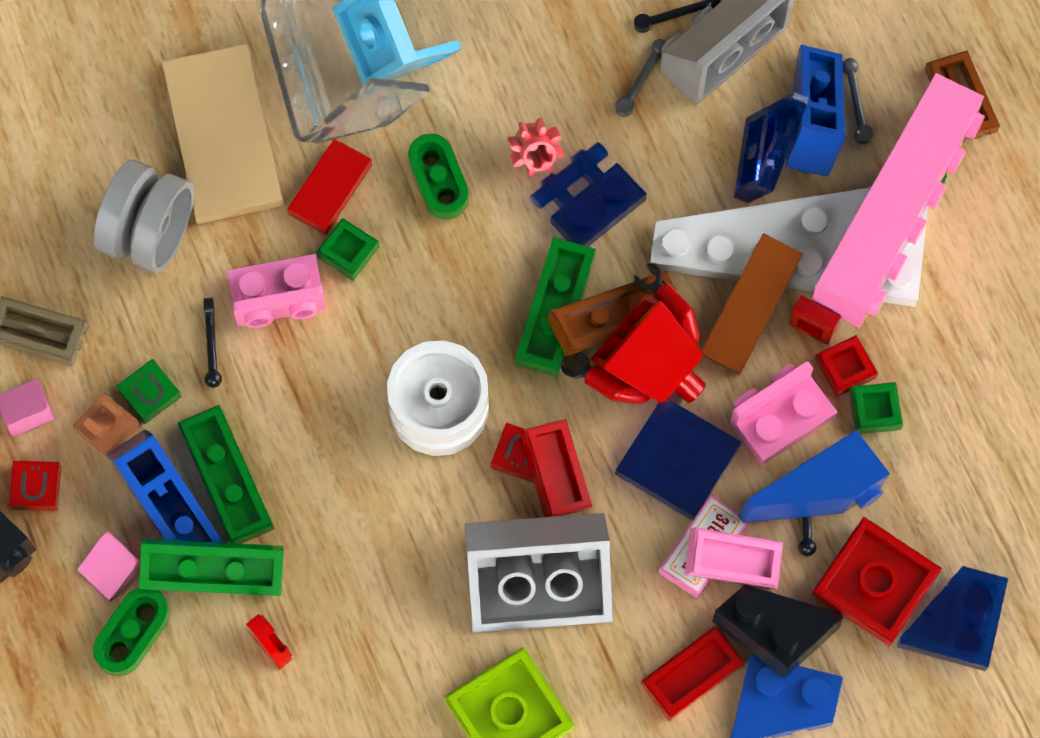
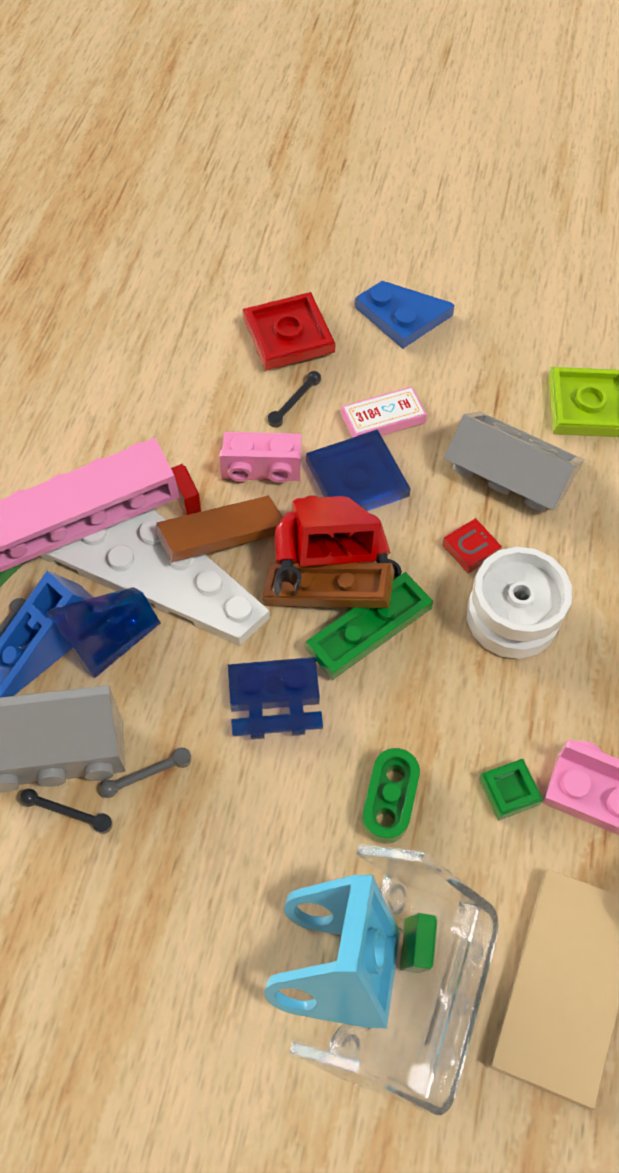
camera: 145 degrees left, 10 degrees down
(329, 186) = (495, 854): red tile -> none
(342, 72) = (418, 943): none -> green tile
(535, 147) = (290, 758): coral gear -> none
(555, 469) = (455, 512): red tile -> none
(692, 673) = (448, 356): red tile -> none
(733, 558) = (373, 388): bright pink tile -> none
(776, 627) = (376, 340): black wing -> none
(824, 485) = (276, 390): blue slope -> none
(846, 365) = (193, 455): red tile -> none
(876, 408) = (193, 425): green tile -> none
(960, 620) = (254, 283): clear blue wing -> none

